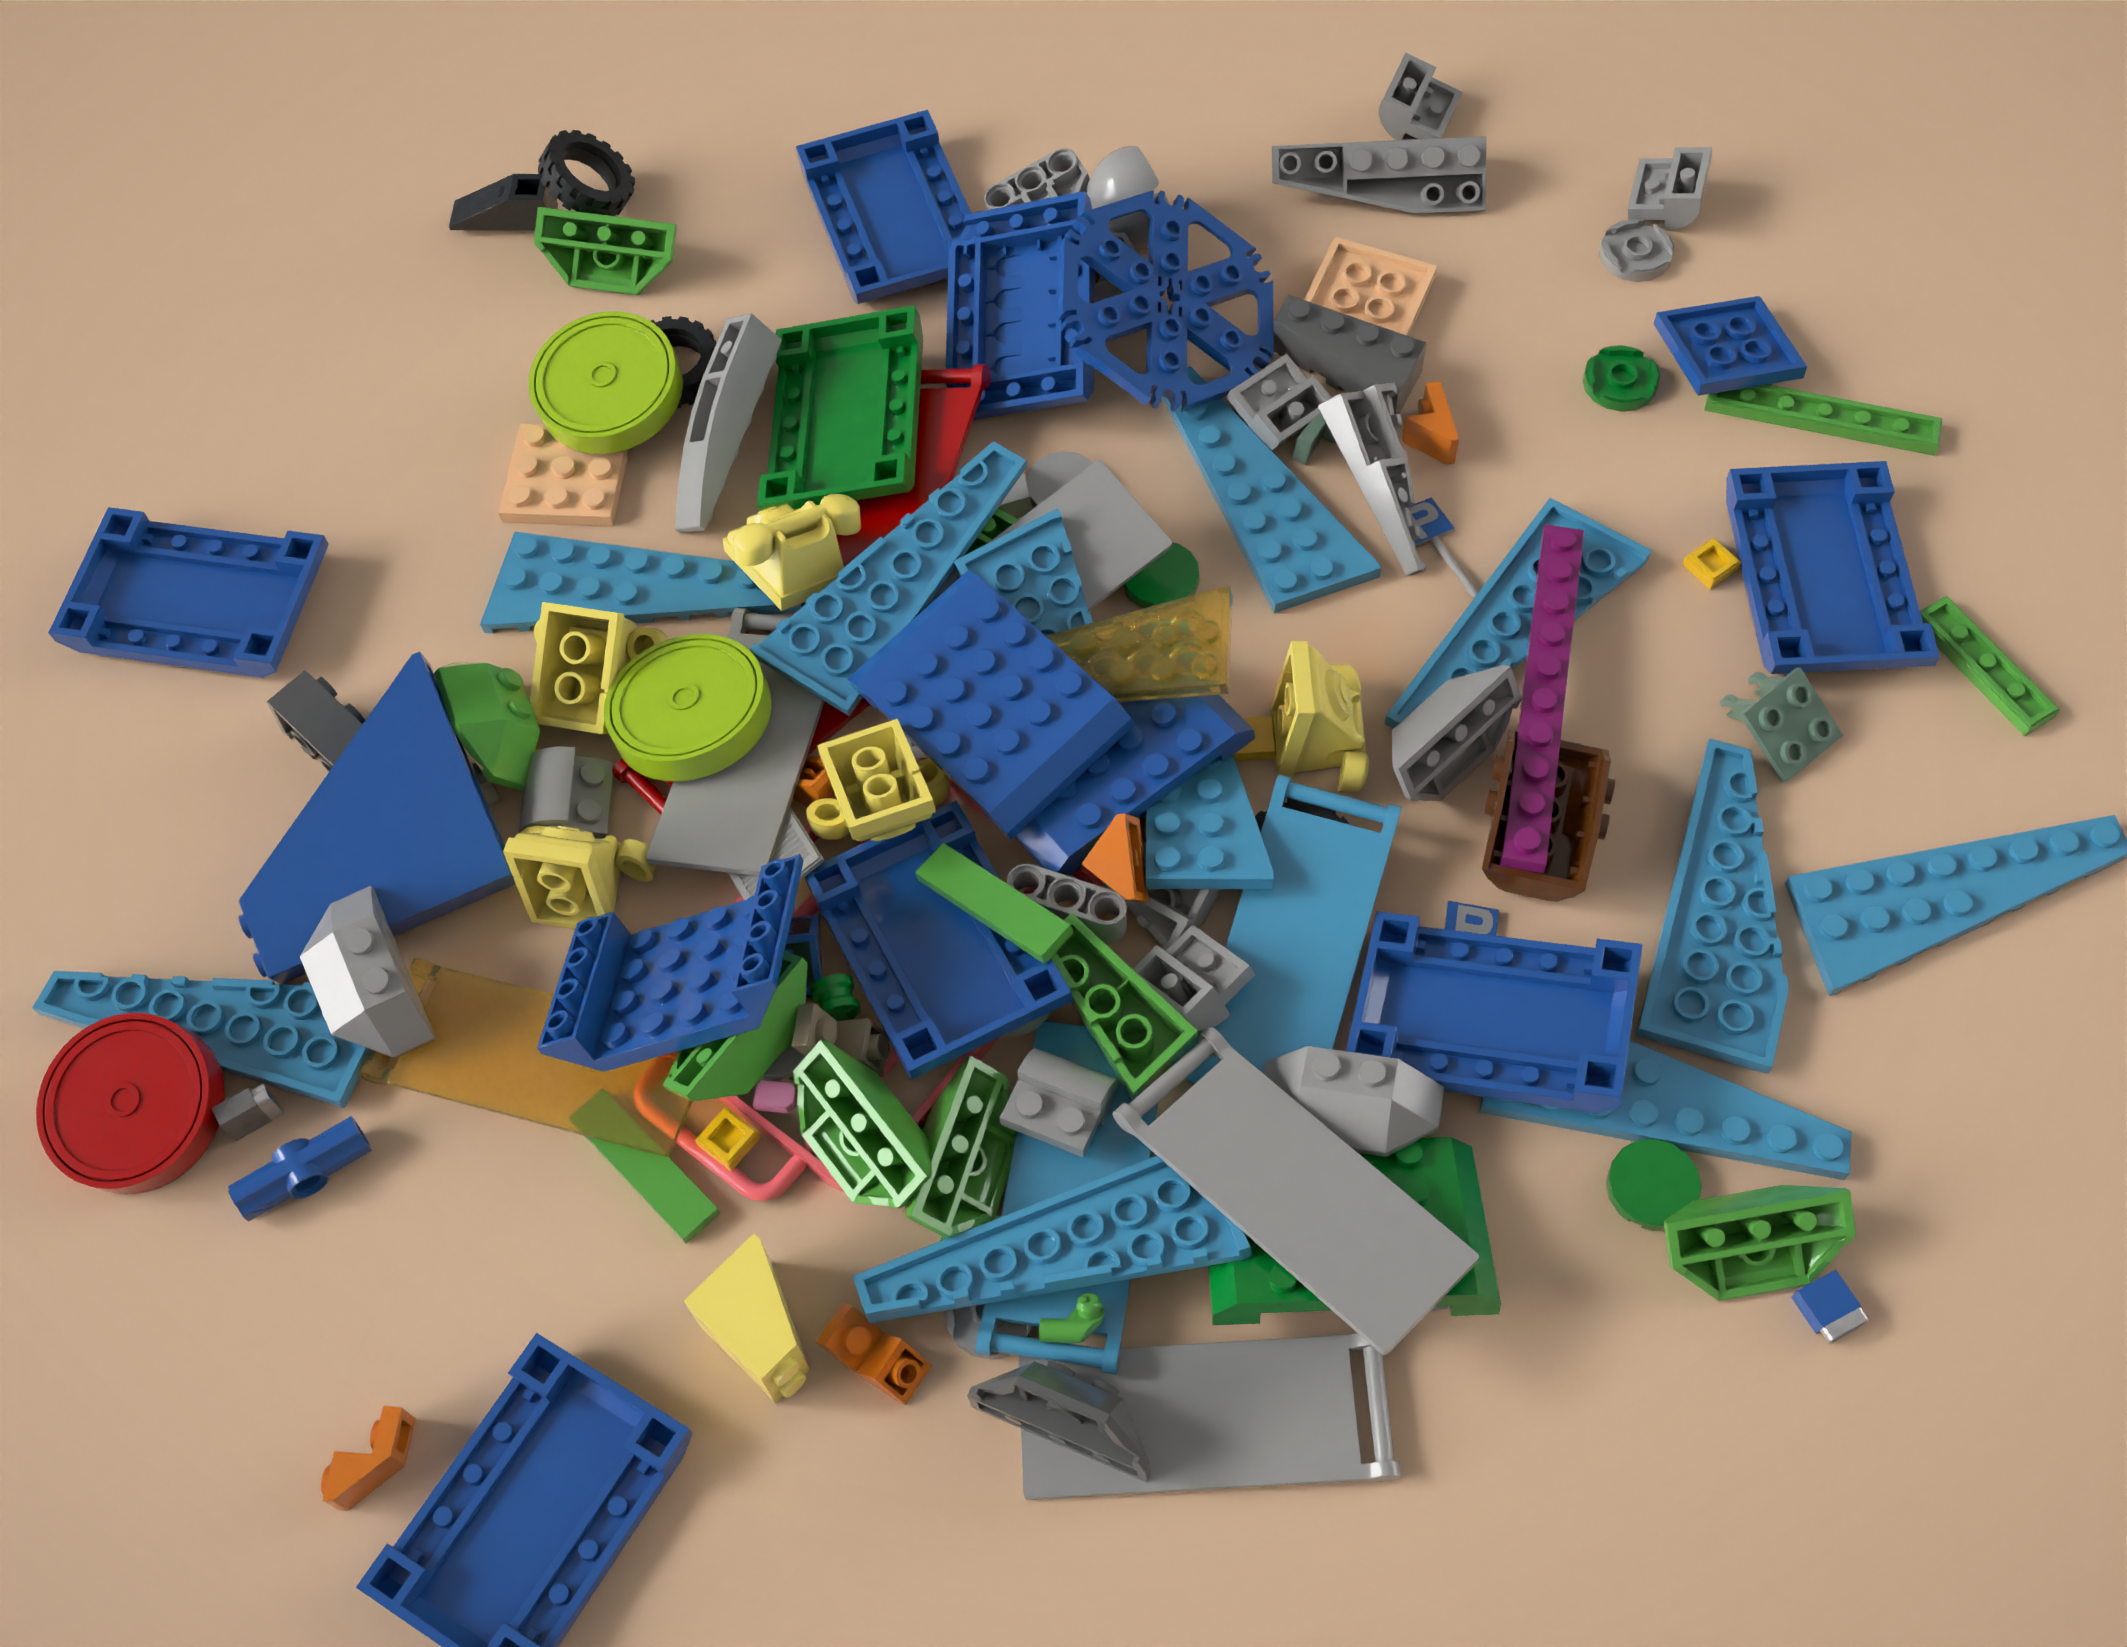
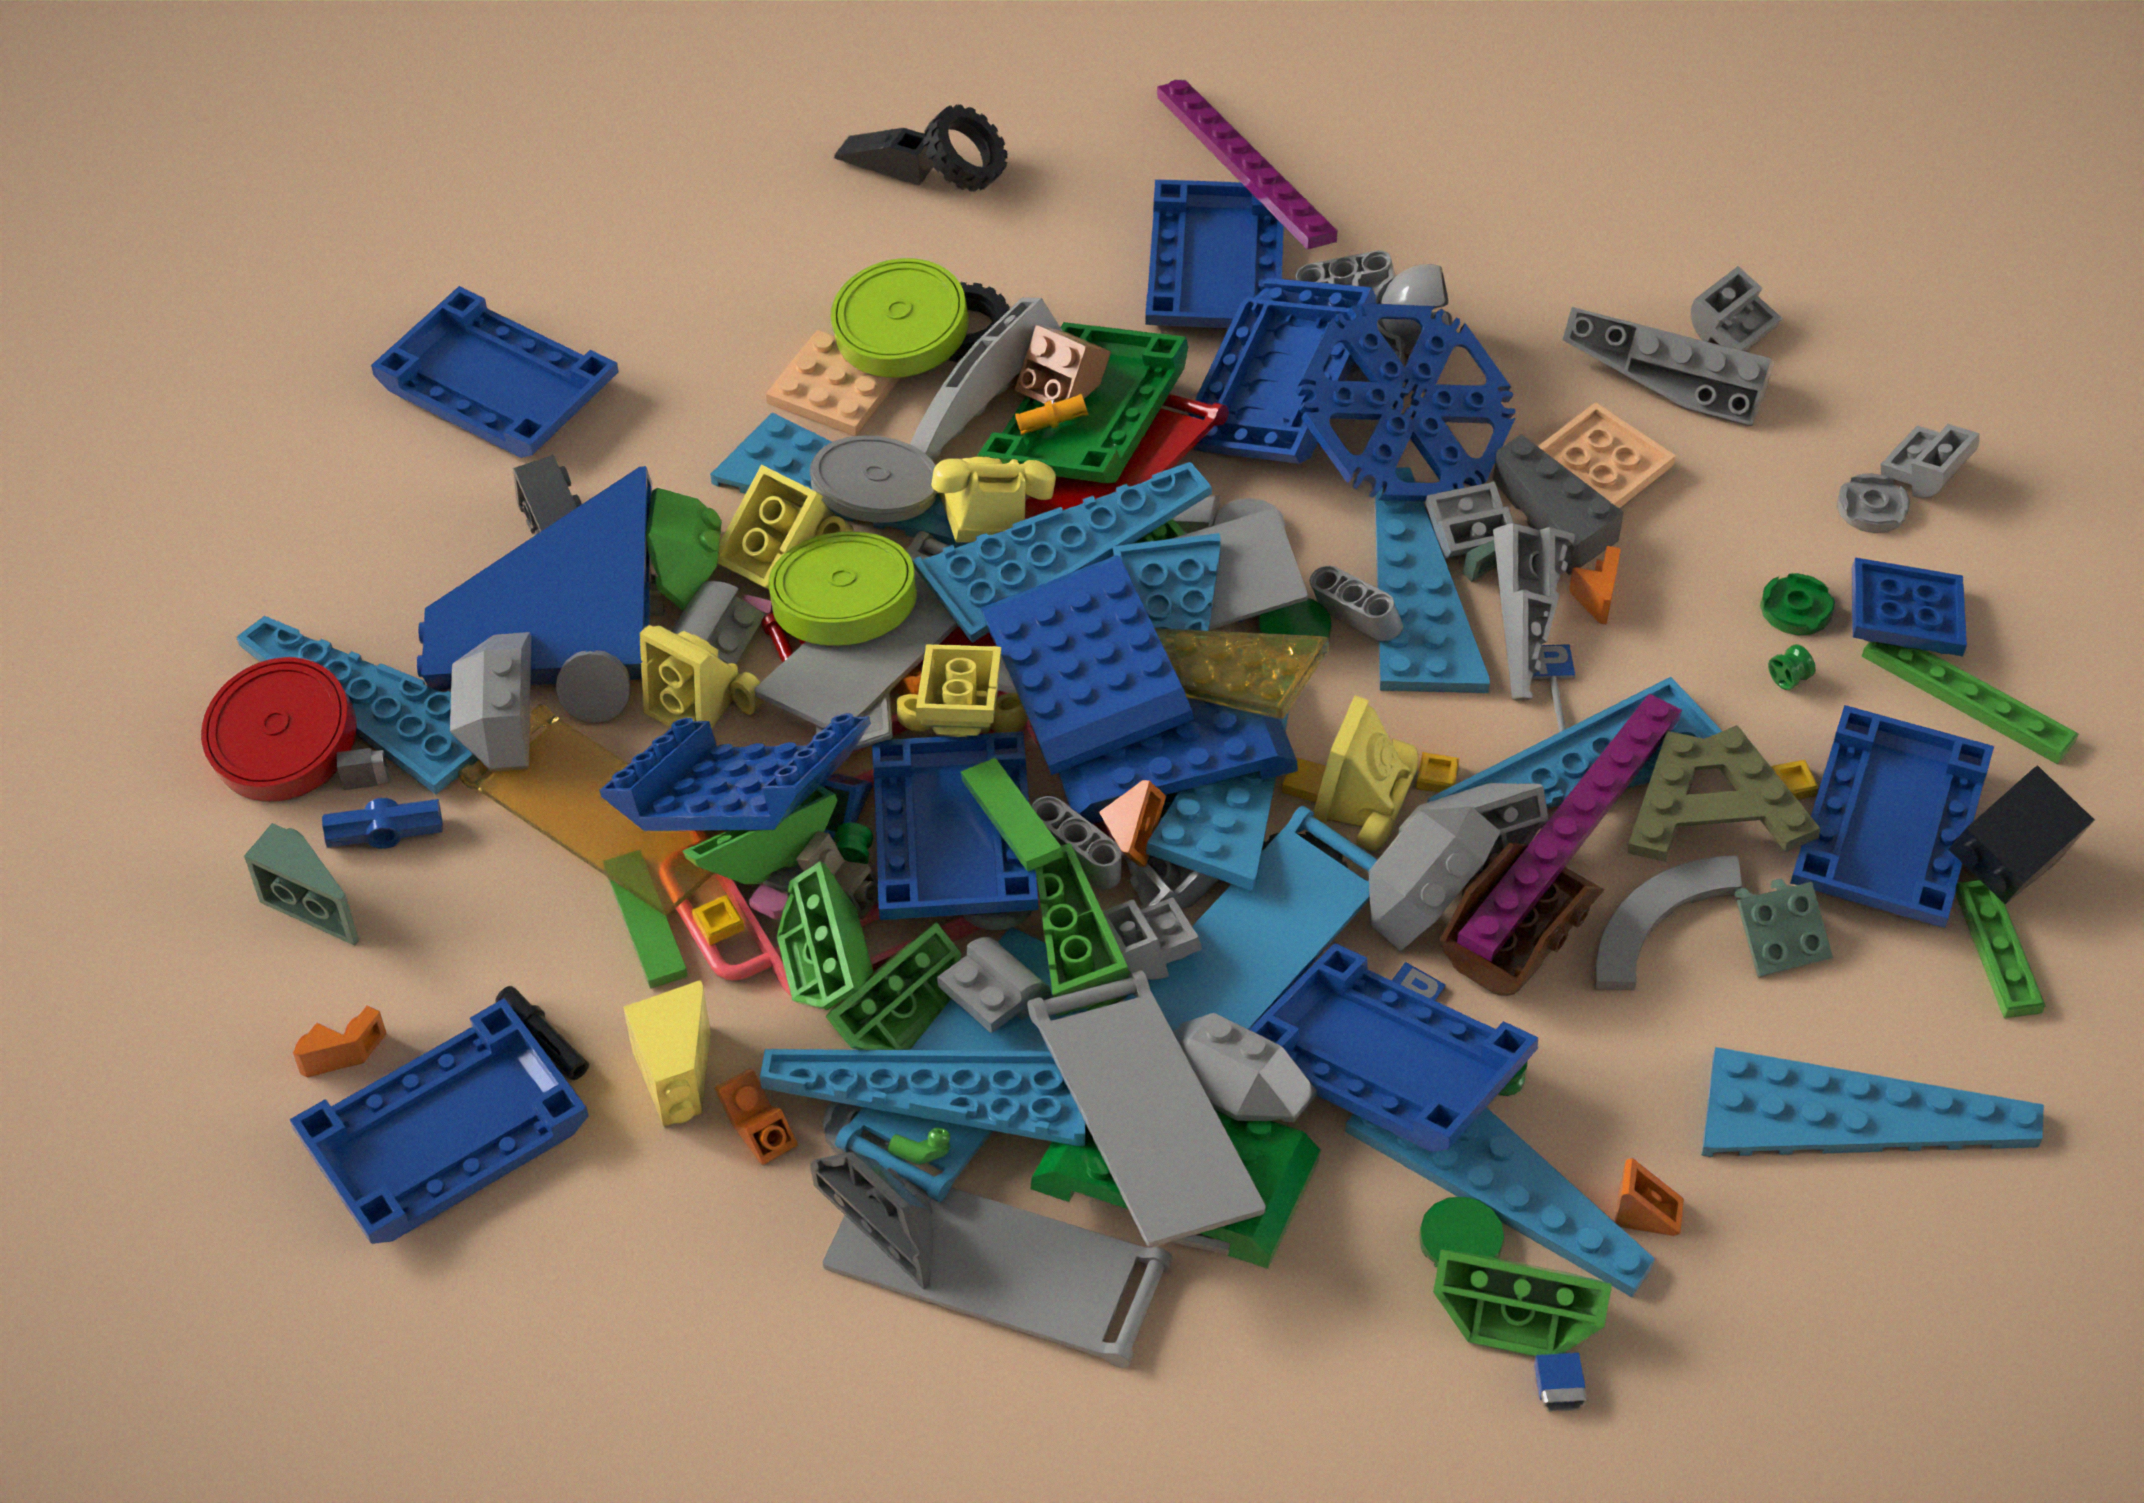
camera: 20 degrees right, 10 degrees down
(226, 1282) = (298, 884): none -> sand green slope
(466, 918) = (593, 686): none -> light grey tile
(594, 1349) = (545, 1034): none -> black pin
(600, 751) = (762, 604): none -> bright pink piece
(604, 249) = (952, 213): bright green wedge -> none
(662, 570) = (873, 478): none -> light grey brick
(800, 382) = (1060, 366): none -> nougat slope
(814, 435) = (1051, 414): none -> light orange pin
(881, 101) = (1247, 165): none -> magenta plate
(1227, 541) = (1356, 603): none -> light grey beam
(1378, 682) = (1437, 772): none -> yellow tile
(1440, 801) = (1426, 870): none -> light grey wedge
(1646, 752) = (1650, 906): none -> light grey tile
(1654, 446) = (1791, 667): none -> green wheel
(1704, 598) = (1758, 795): none -> olive plate
(1718, 952) = (1623, 1076): dark azure wing -> none
(1811, 1074) = (1647, 1202): none -> orange slope
(1964, 544) = (2021, 835): none -> black slope

